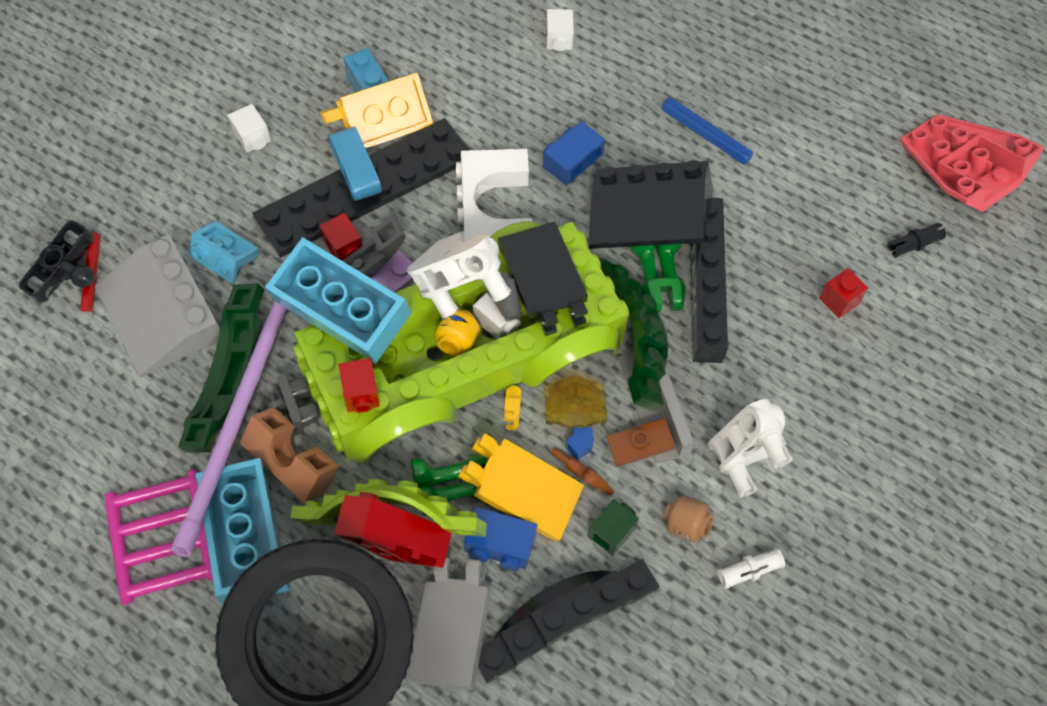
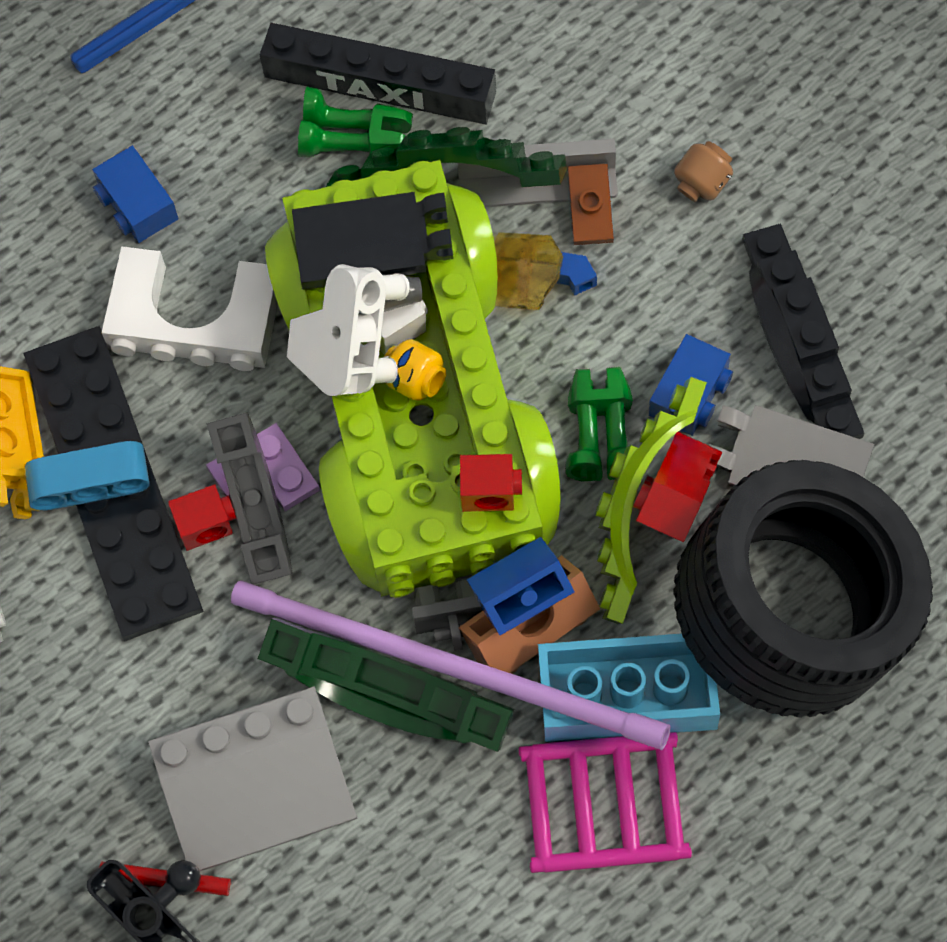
camera: 70 degrees left, 5 degrees up
(221, 250) = (178, 684): medium azure bracket -> none
(297, 433) = (520, 585): none -> blue brick
(339, 300) = (361, 484): medium azure brick -> none
(512, 407) = (511, 340): yellow piece -> none
(523, 486) = (629, 343): yellow tile -> none
(583, 472) = (614, 280): dark orange hand -> none
(613, 526) = (698, 255): dark green brick -> none
(650, 205) = (265, 107): black slope -> none
(750, 438) = (622, 72): white piece -> none
(751, 568) = (774, 122): white pin -> none

